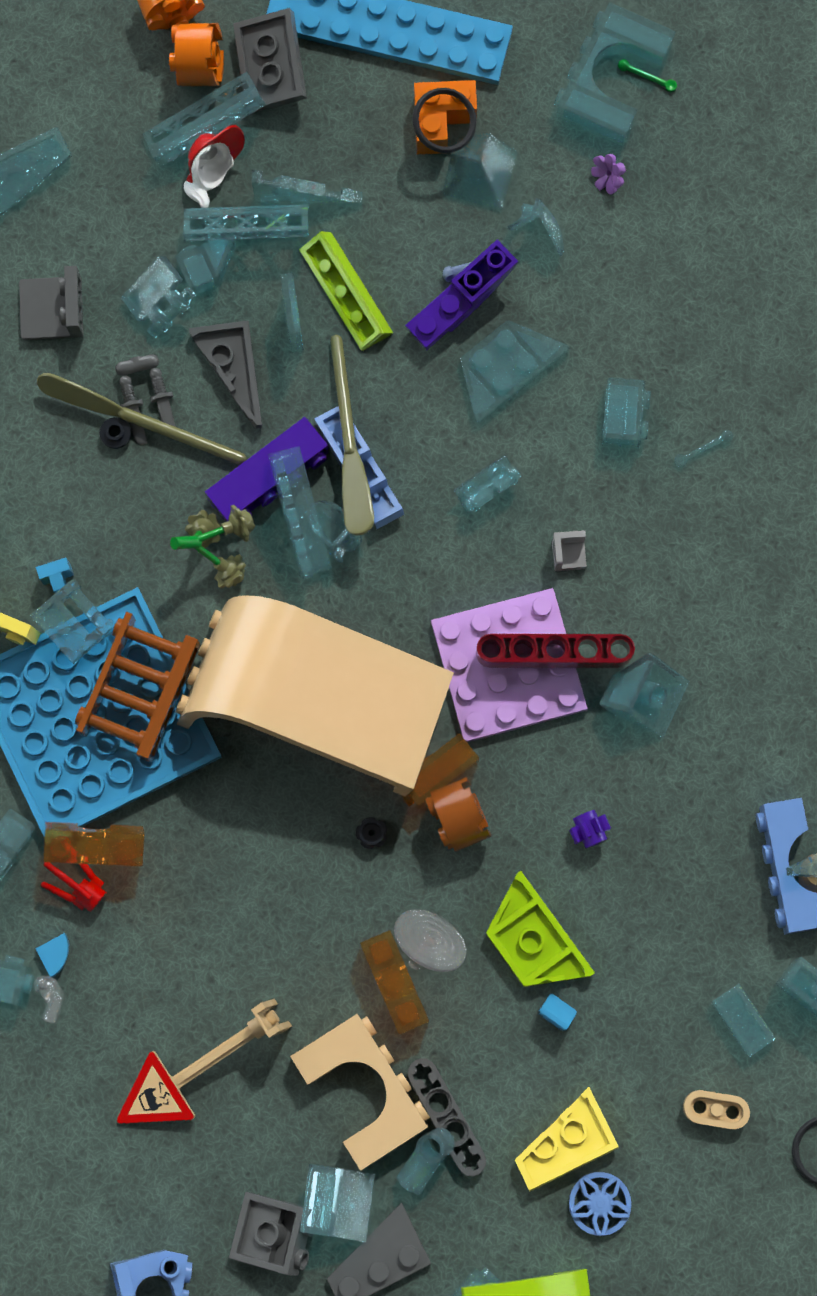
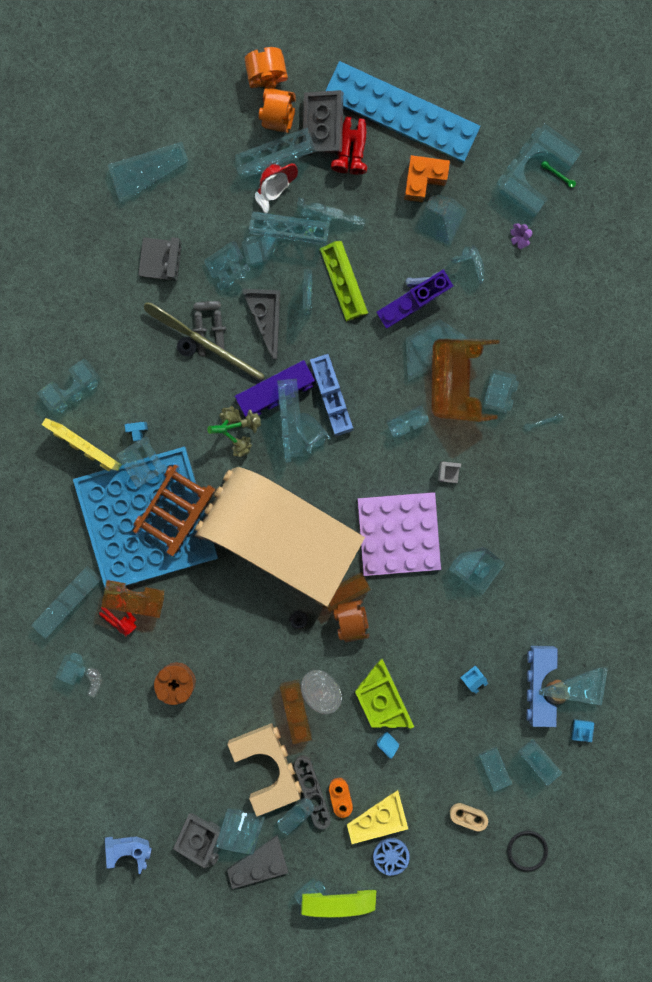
camera: 15 degrees right, 10 degrees up
(54, 954) = (100, 656): dark azure tile -> none
(158, 1094) = (147, 748): tan piece -> none
(171, 960) = (166, 691): none -> dark orange brick
(329, 76) = (358, 138): none -> red piece
(355, 488) = (326, 414): olive piece -> none
(468, 105) = (425, 204): black tyre -> none
(496, 1118) = (340, 798): none -> orange plate
(544, 399) = (452, 379): none -> clear orange windscreen
(569, 643) = (437, 538): dark red beam -> none
(590, 829) = (428, 642): dark purple gear -> none
(677, 876) = (474, 679): none -> dark azure tile

